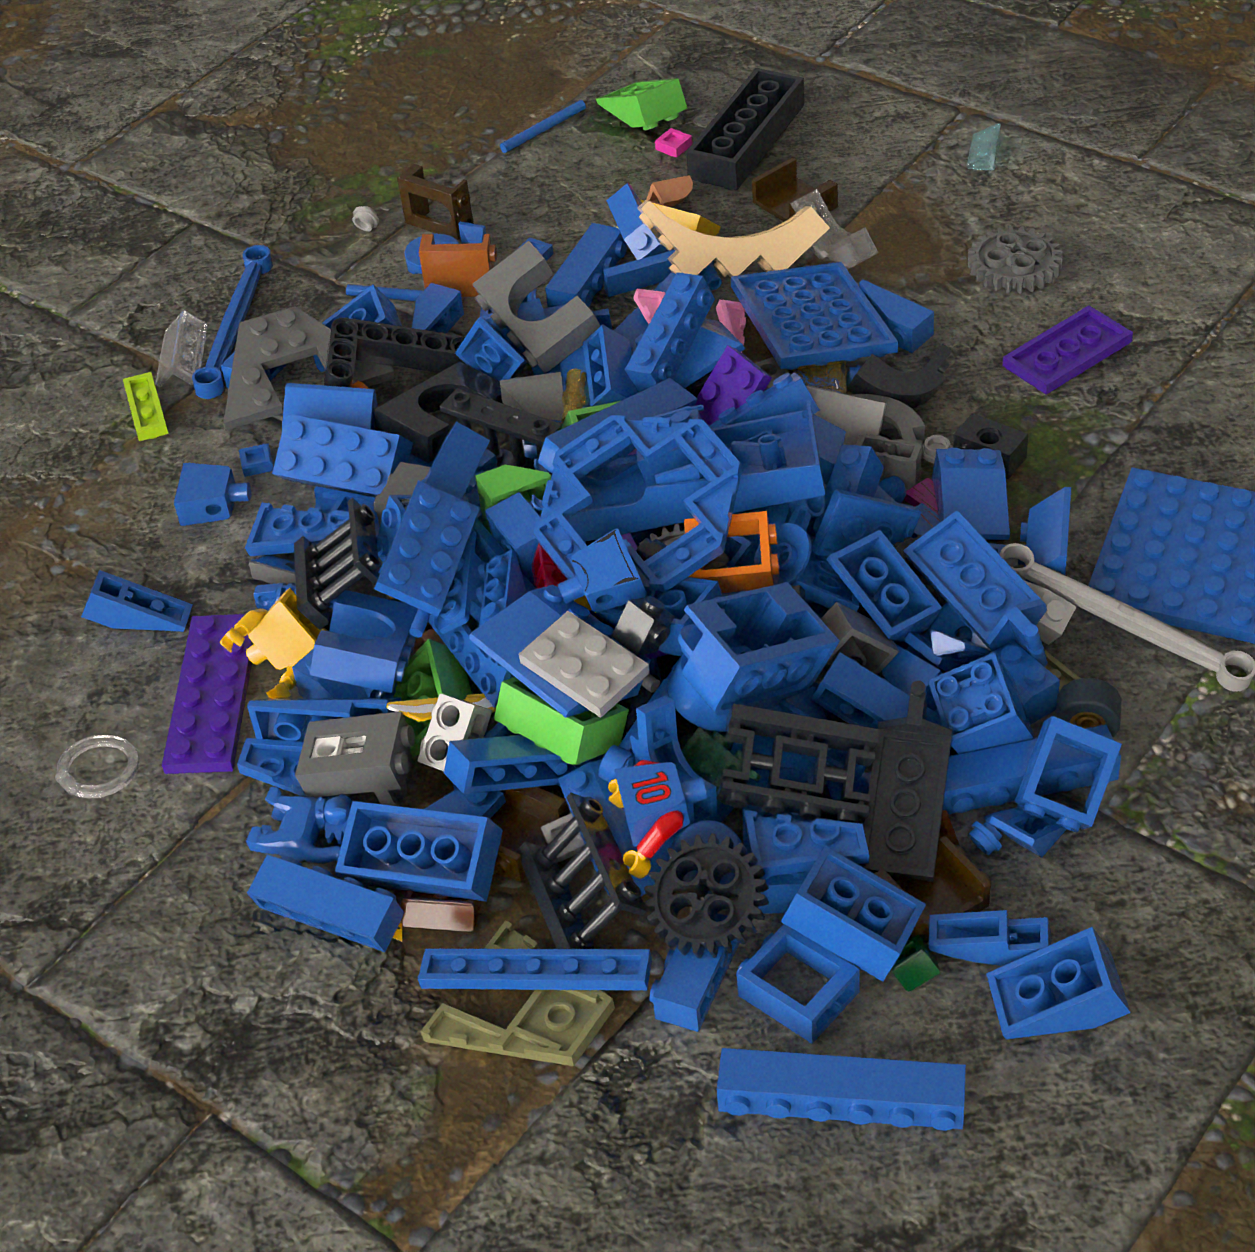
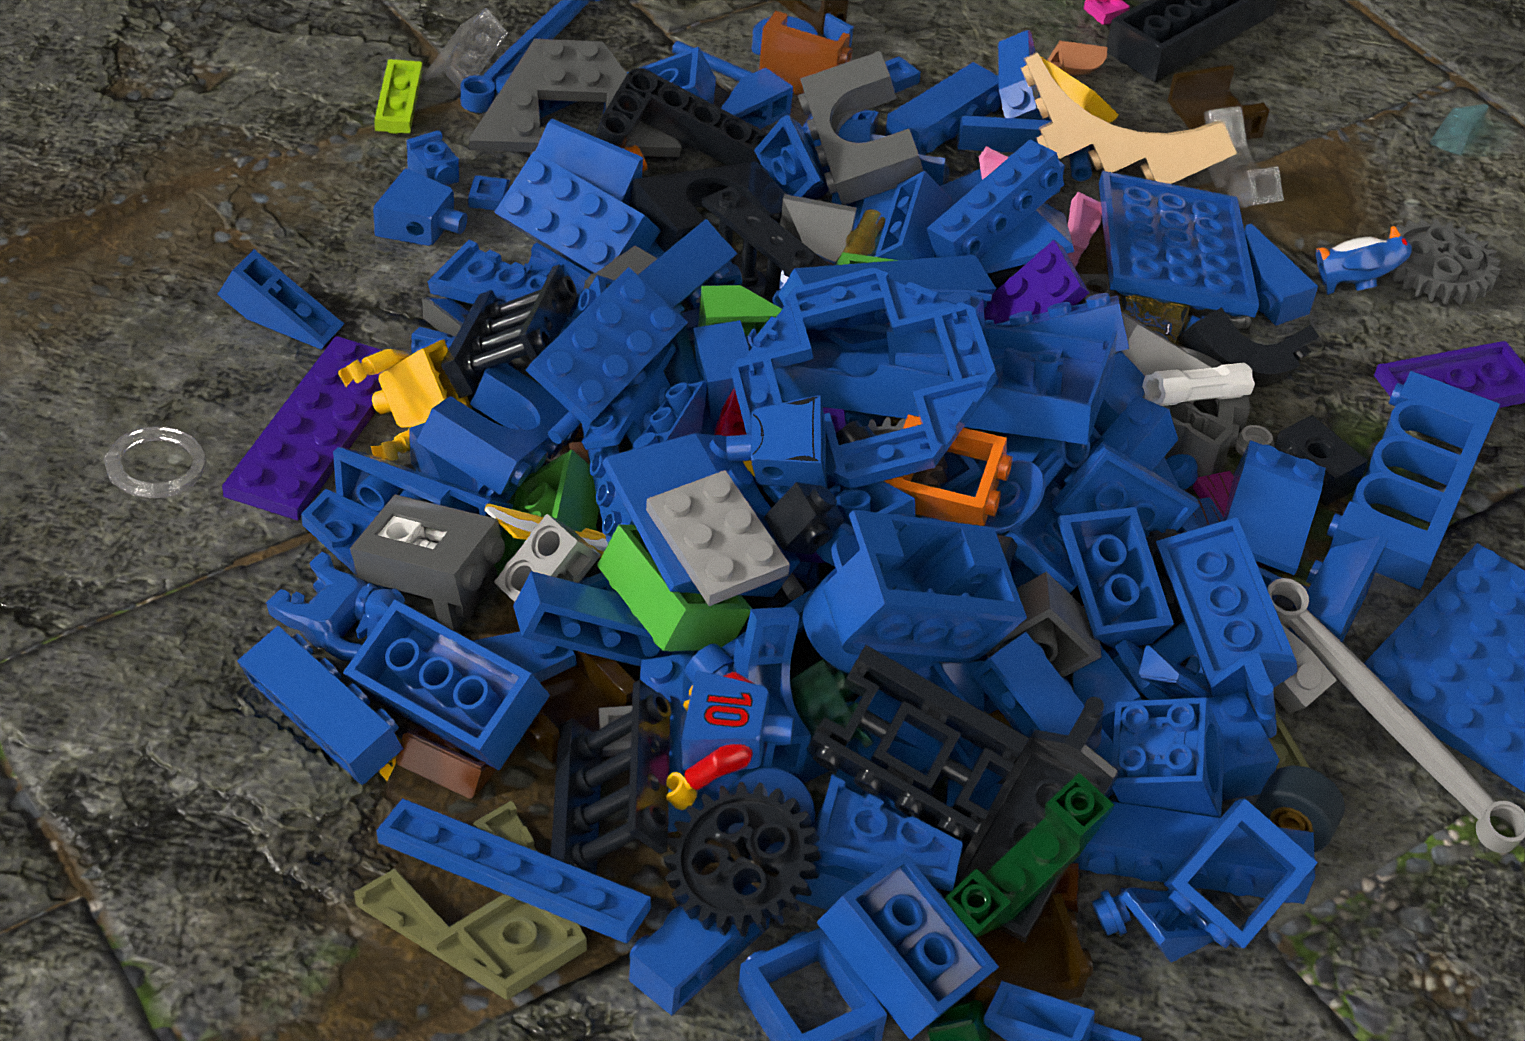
camera: 10 degrees right, 0 degrees up
(199, 447) = (433, 158): none -> blue brick
(892, 413) = (1179, 386): none -> white axle
(919, 817) = (1035, 861): none -> dark green slope
(957, 280) = (1361, 260): none -> blue animal
(1068, 378) = (1440, 413): none -> blue fence

